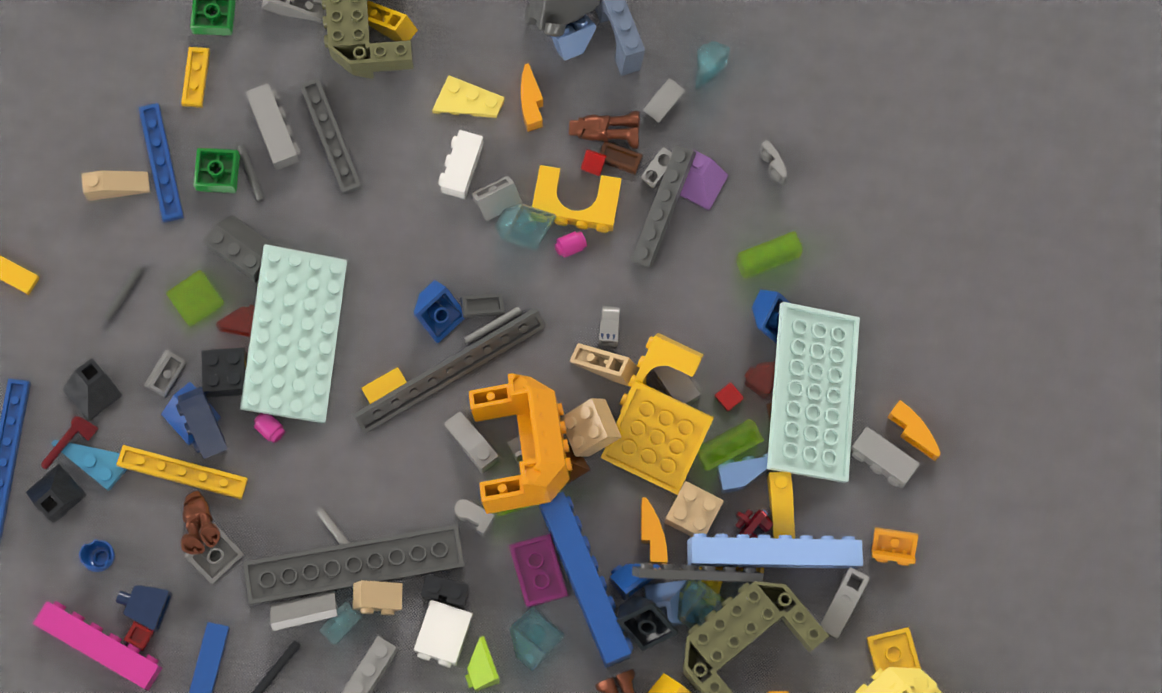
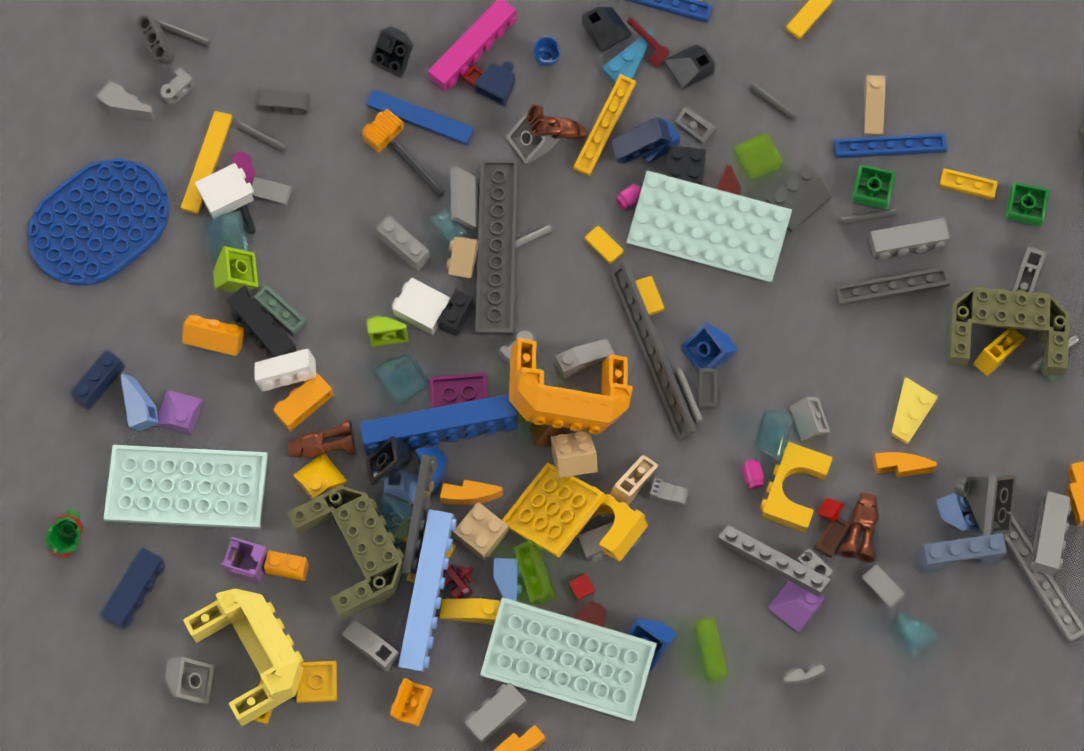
camera: 105 degrees right, 5 degrees down
(331, 446) = (604, 244): none -> yellow tile
(461, 164) = (846, 392): white brick -> none

